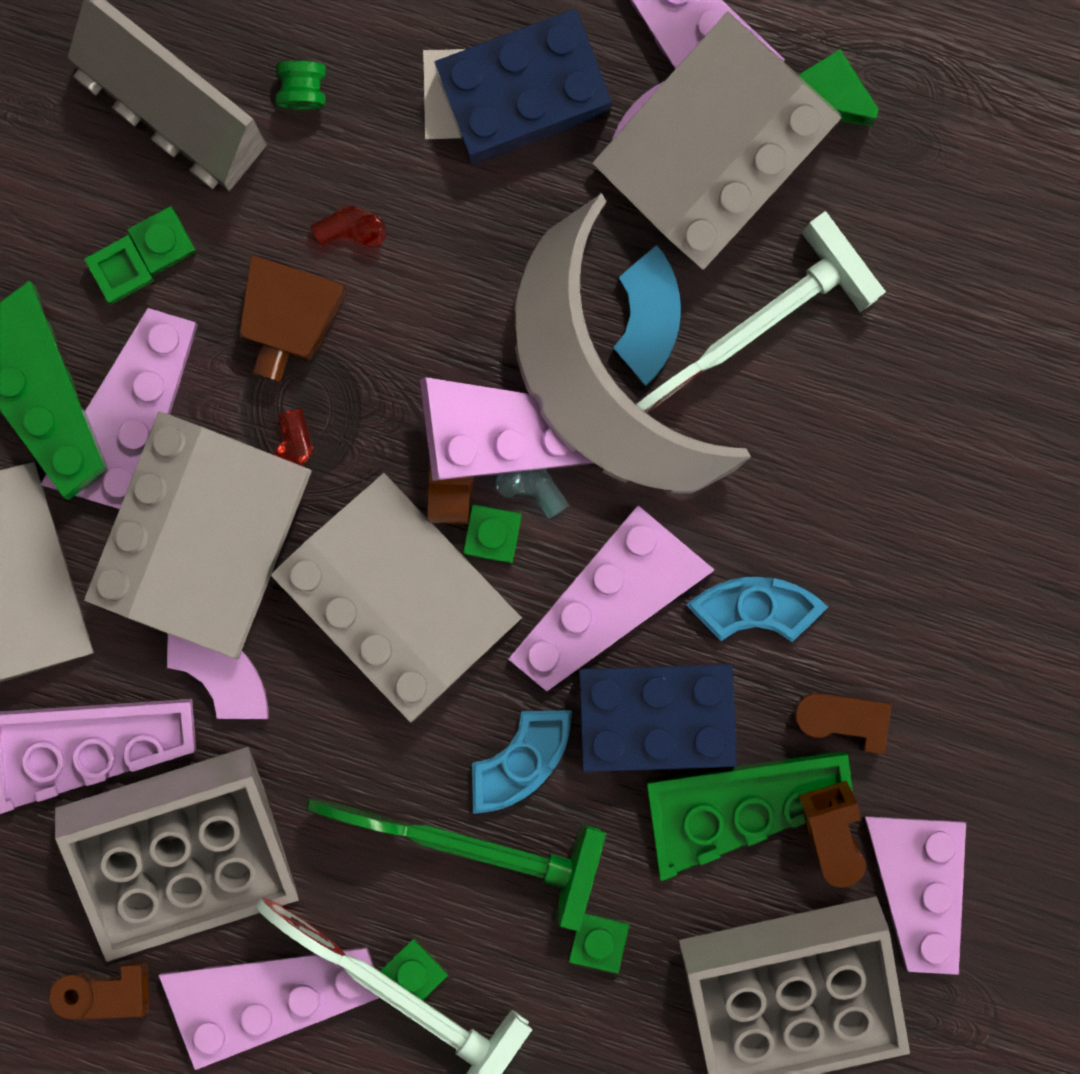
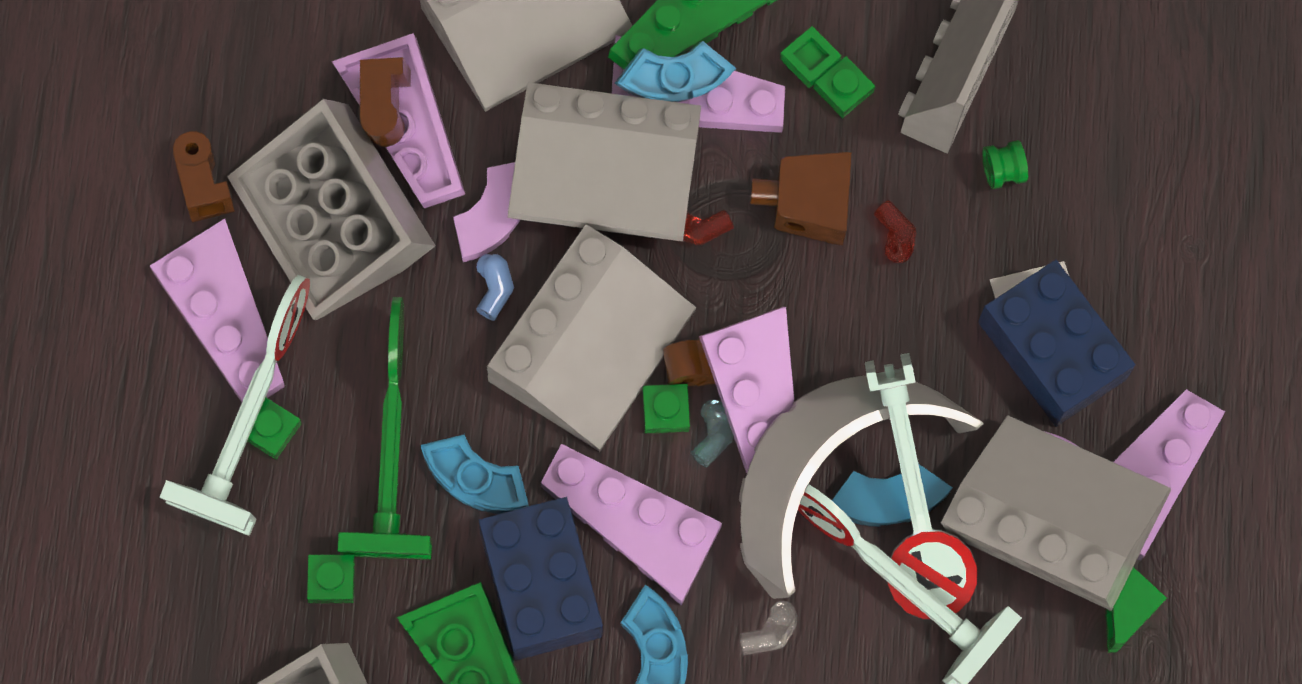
camera: 75 degrees right, 15 degrees down
(63, 771) = (380, 98): none -> reddish brown leg
(116, 430) = (675, 77): none -> dark azure tile
(305, 684) = (499, 283): none -> medium blue arm
(732, 291) = (928, 555): none -> light aqua piece
(771, 479) = (775, 632): none -> clear arm

